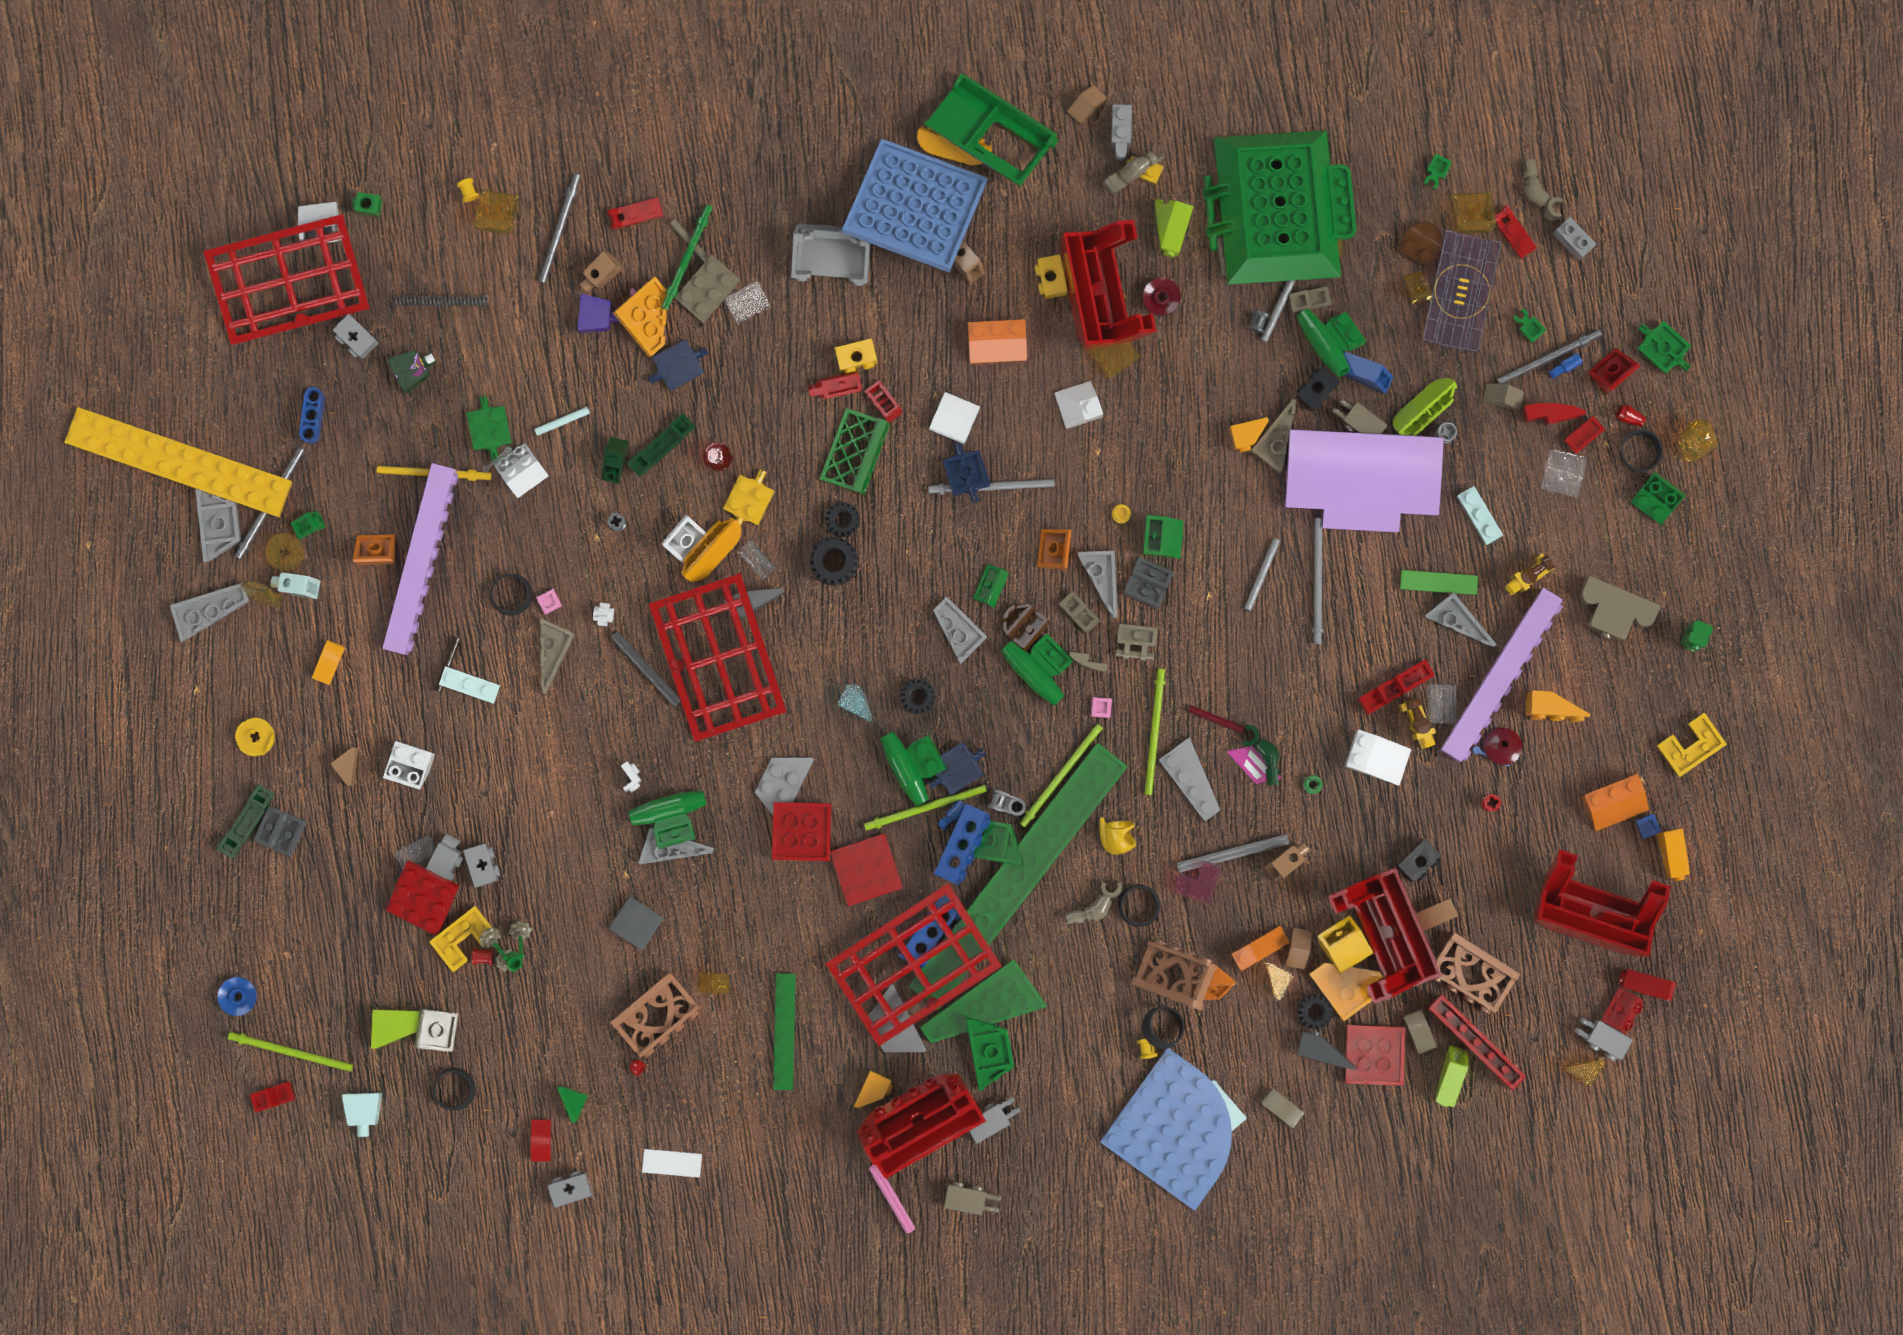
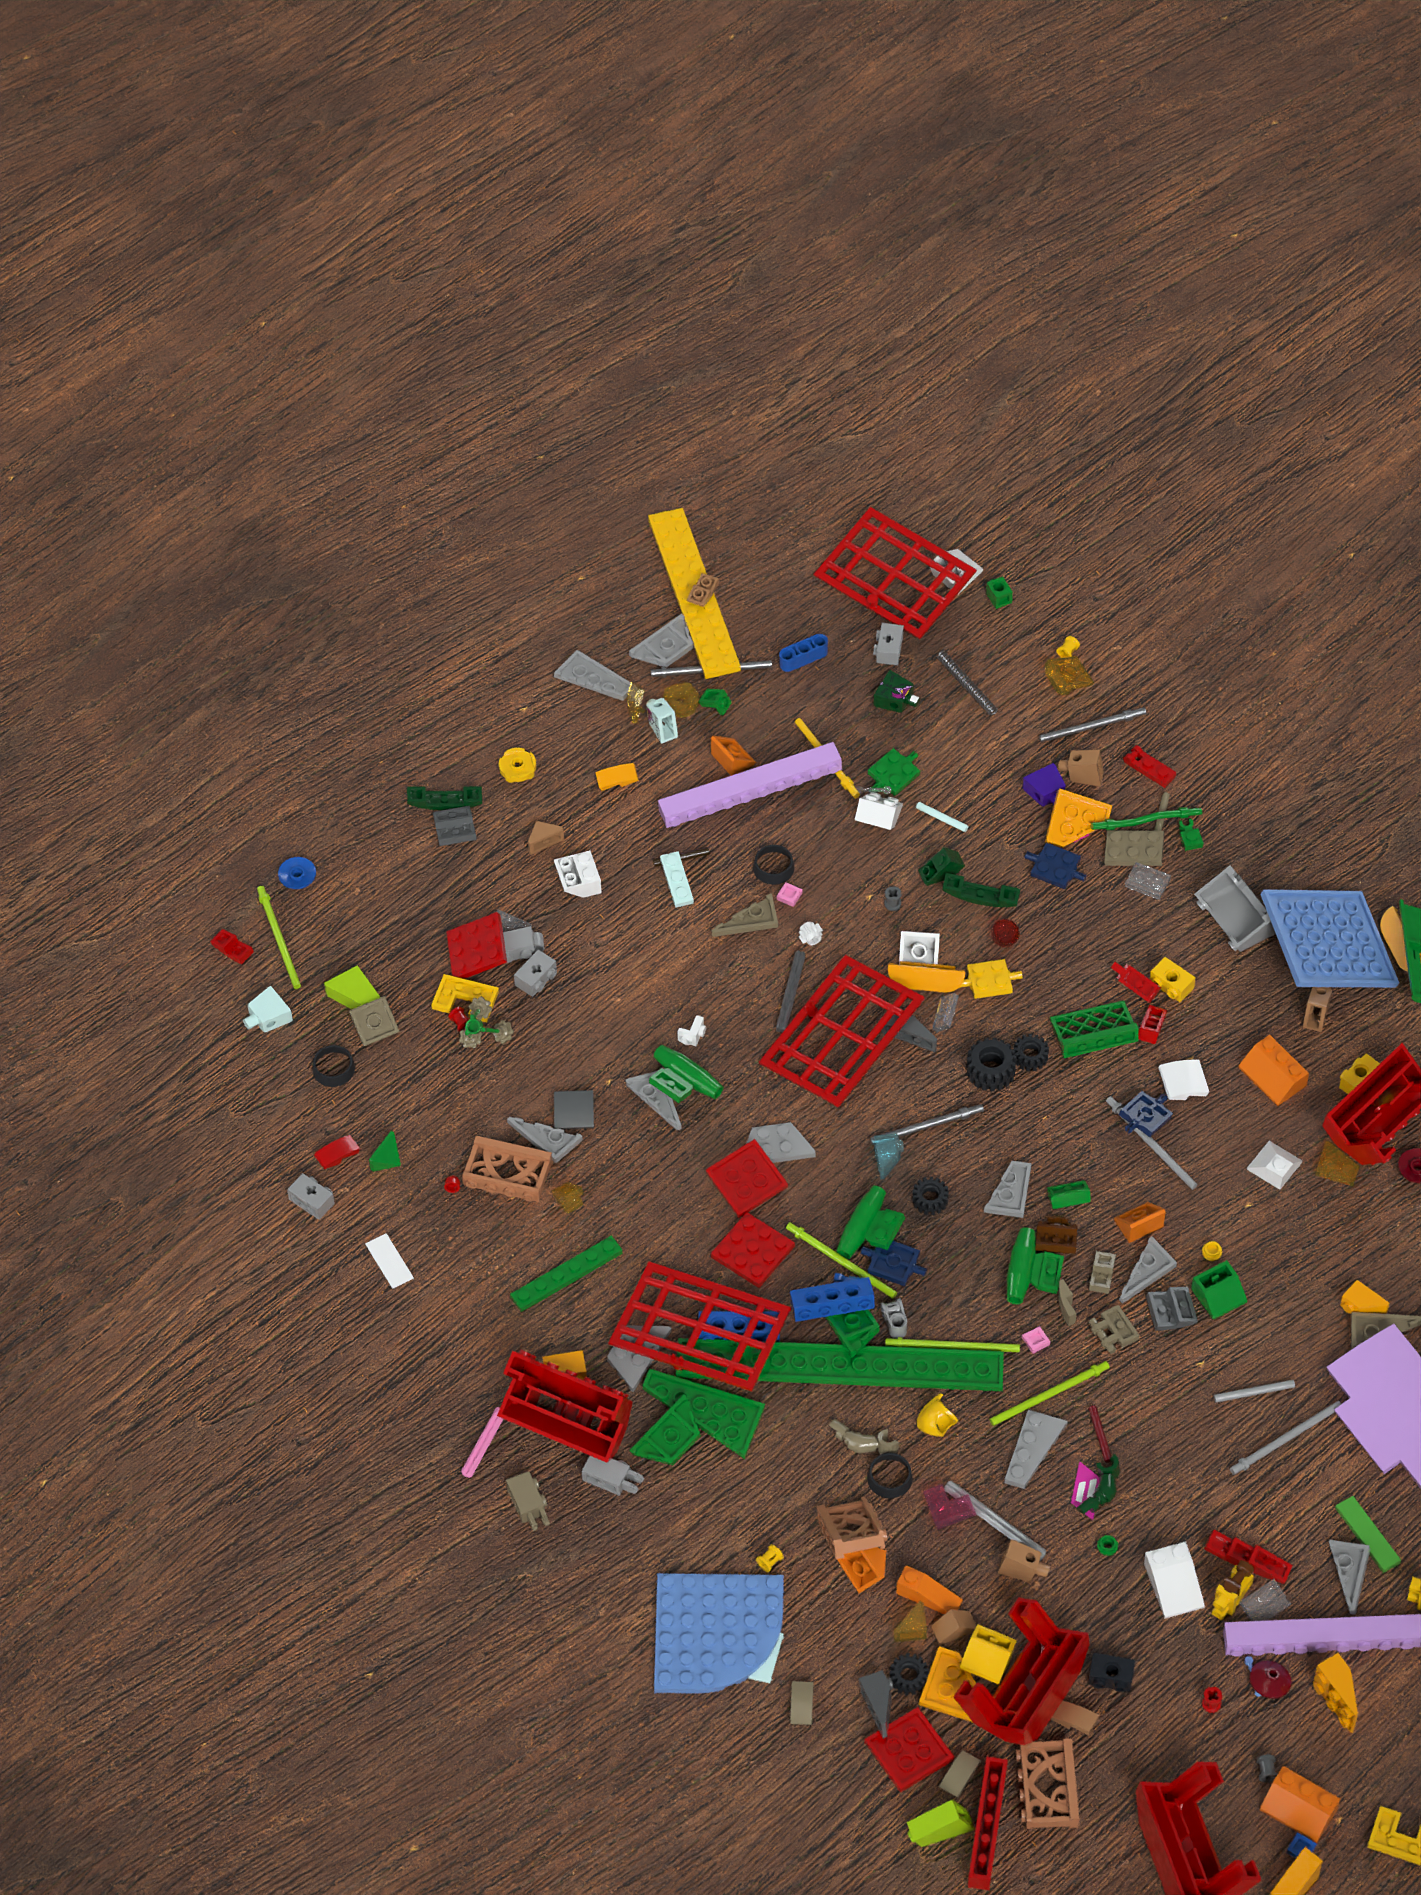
camera: 55 degrees right, 30 degrees down
(188, 457) = (703, 590): none -> medium nougat slope
(654, 961) = (546, 1137): none -> light grey wing
(728, 234) = (1190, 837): none -> green plate
(859, 614) = (962, 1113): none -> flat silver bar
(1150, 1036) = (783, 1565): black tyre -> none
(1571, 804) = (1267, 1768): none -> dark grey bush

